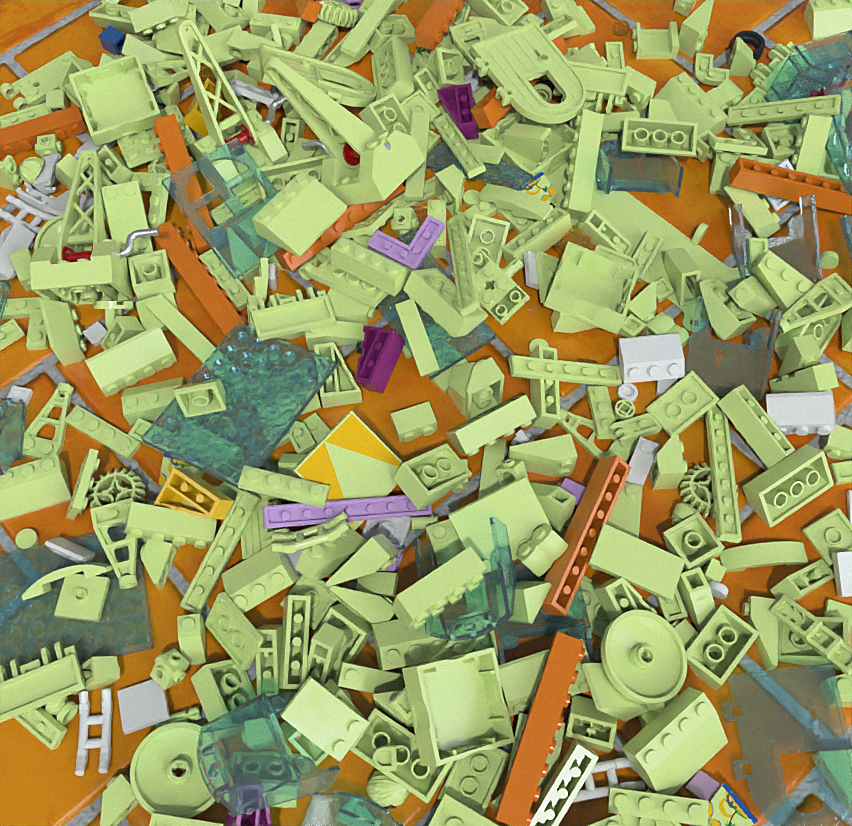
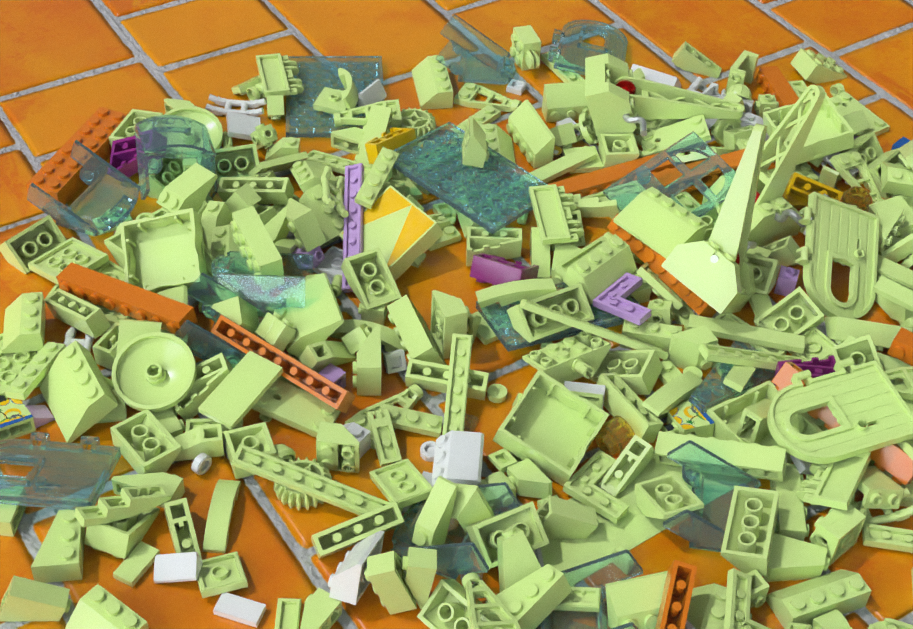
camera: 95 degrees right, 20 degrees down
(27, 538) = (392, 86): yellowish green tile -> none
(83, 484) = (434, 104): yellowish green plate -> none
(272, 276) = (604, 222): white tile -> none
(414, 422) = (429, 282): yellowish green brick -> none
(620, 410) = (406, 437): yellowish green wheel -> none
(647, 196) = (665, 497): none -> yellowish green slope
(710, 341) = (470, 506): none -> yellowish green slope
(714, 571) = (218, 465): yellowish green piece -> none
(732, 360) = (435, 516): none -> yellowish green slope
(789, 485) = (287, 551): yellowish green slope -> none

